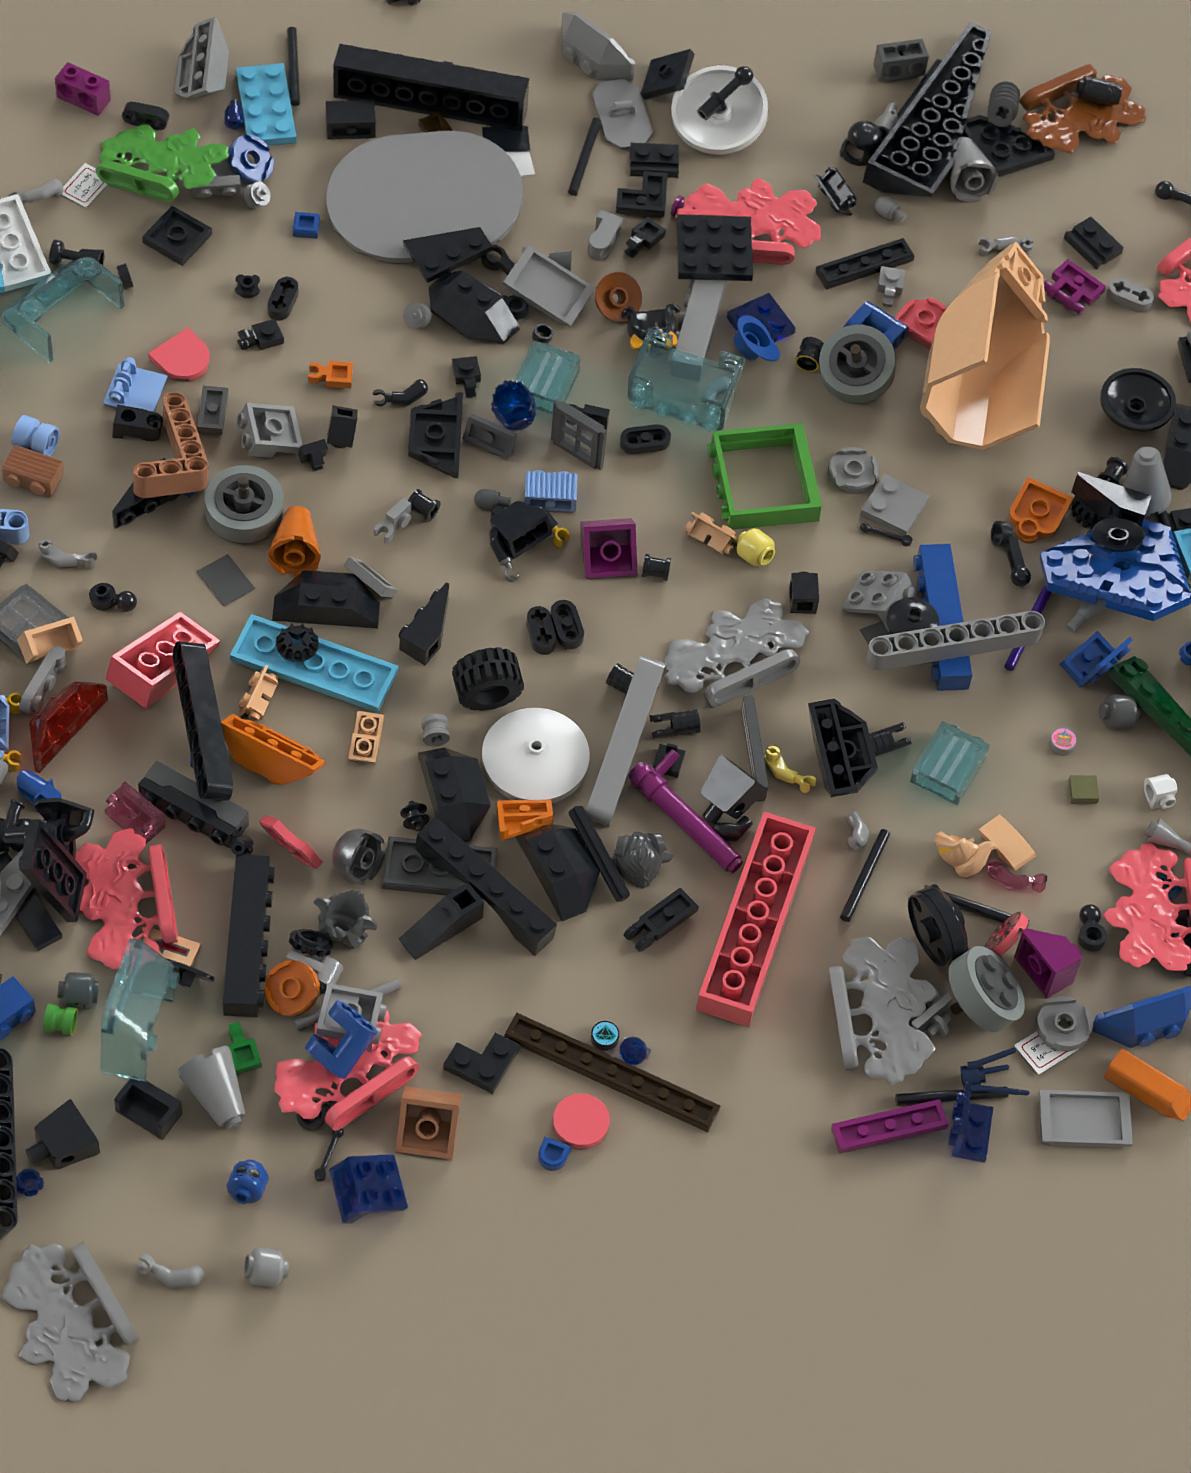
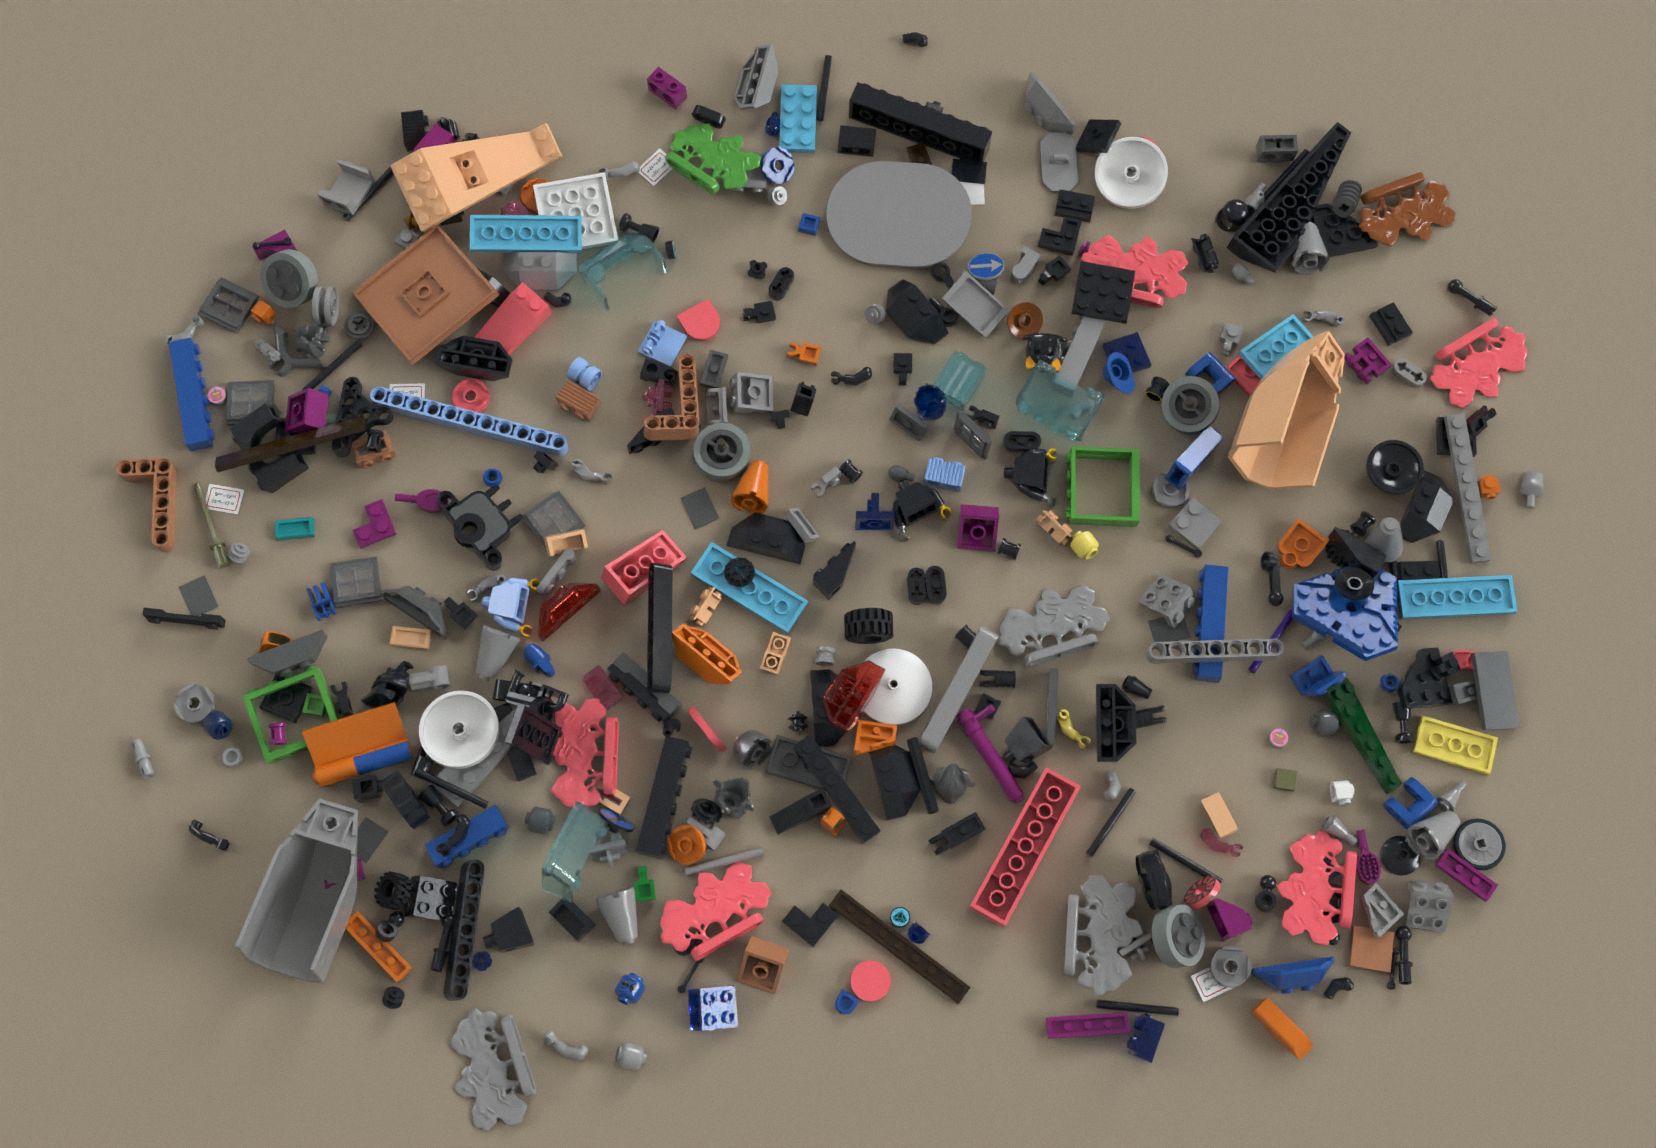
camera: 15 degrees right, 15 degrees up
(60, 1019) = (523, 840): bright green wheel -> none
(104, 597) = (625, 516): black plate -> none
(140, 448) = (660, 390): none -> clear pink hips
(177, 235) = (714, 220): black plate -> none
(183, 1012) = (609, 851): none -> light grey hips
(225, 449) = (716, 406): none -> light grey hinge
(352, 1045) = (723, 898): blue connector -> none
(365, 1002) = (723, 877): light grey plate -> none
(437, 434) = (871, 414): black wing -> none
(446, 251) = (906, 264): black wing -> none
(468, 551) = (873, 518): none -> clear blue bracket
(484, 759) = (852, 693): none -> clear red wedge
(486, 927) = (833, 821): none -> orange leg
(546, 333) = (966, 342): black hinge -> none
(554, 240) = (986, 266): none -> blue piece
(584, 156) = (1023, 195): black bar -> none
(667, 474) = (1031, 473): none -> black torso
(742, 75) = (1153, 151): black pin -> none
(804, 592) = (1112, 587): black brick -> none
(863, 706) = (1136, 687): none -> black cone
(864, 263) = (1214, 316): black tile -> none
(875, 424) = (1193, 457): none -> slope
(900, 618) = (1180, 632): black dish -> none
(946, 282) = (1274, 345): none -> medium azure plate
(949, 763) = (1191, 743): clear light blue brick -> none
(963, 854) = (1185, 818): light nougat hair -> none
(975, 1074) = (1156, 997): dark blue plant -> none
(1085, 1119) = (1230, 1043): light grey piece -> none
(1098, 91) = (1422, 197): black head -> none

